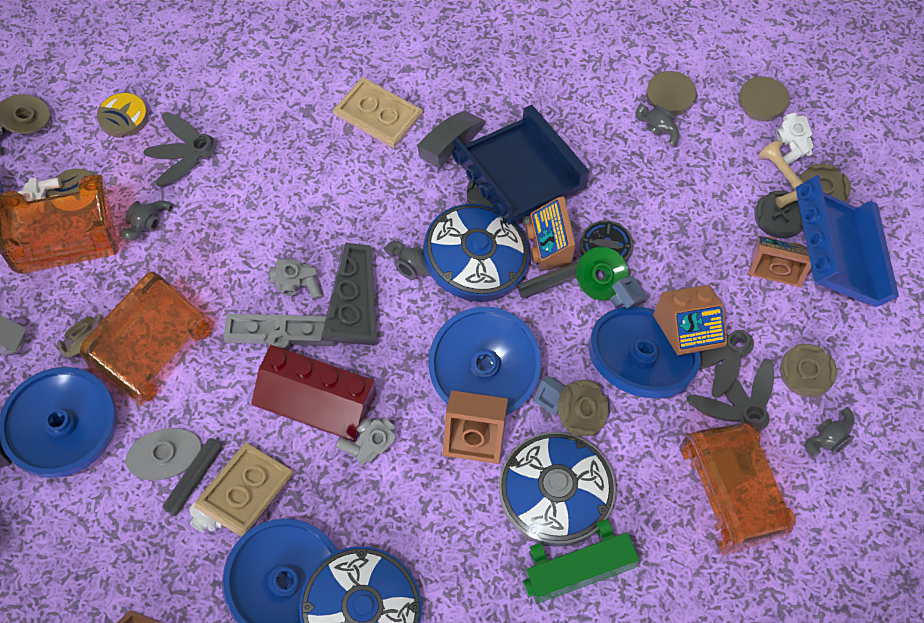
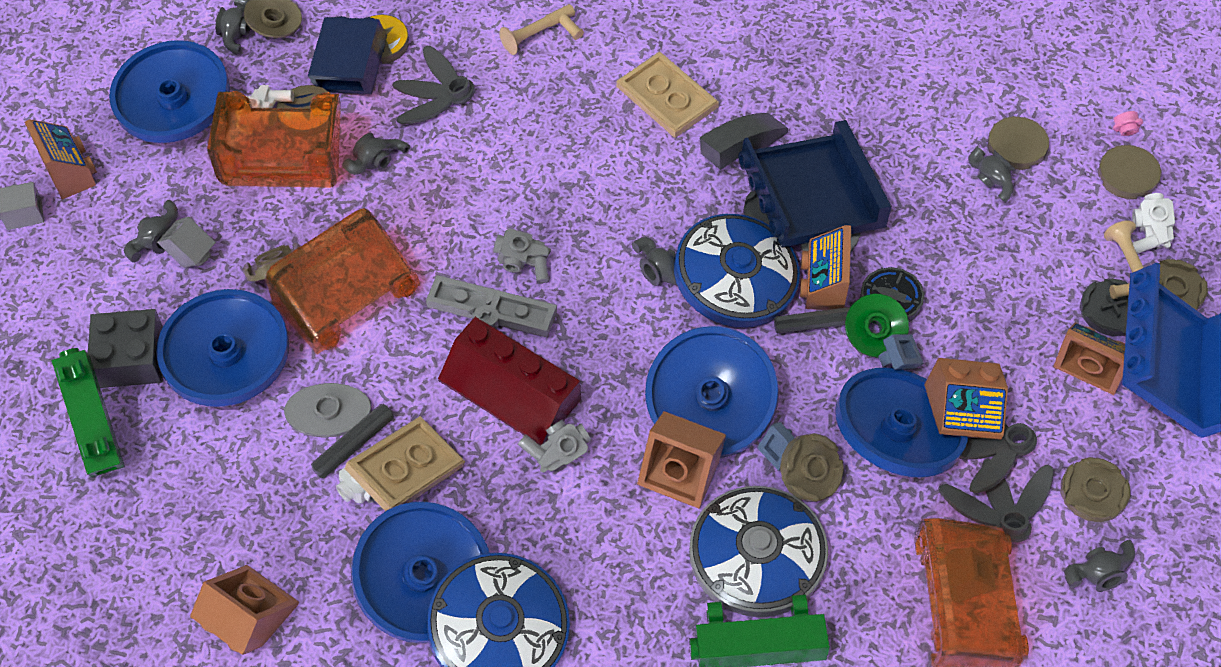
camera: 15 degrees right, 5 degrees down
(98, 135) = (348, 55): none -> dark blue brick
(236, 91) = (512, 39): none -> tan piece
(351, 303) = (580, 293): dark grey wing -> none
(752, 58) = (1127, 123): none -> bright pink plate

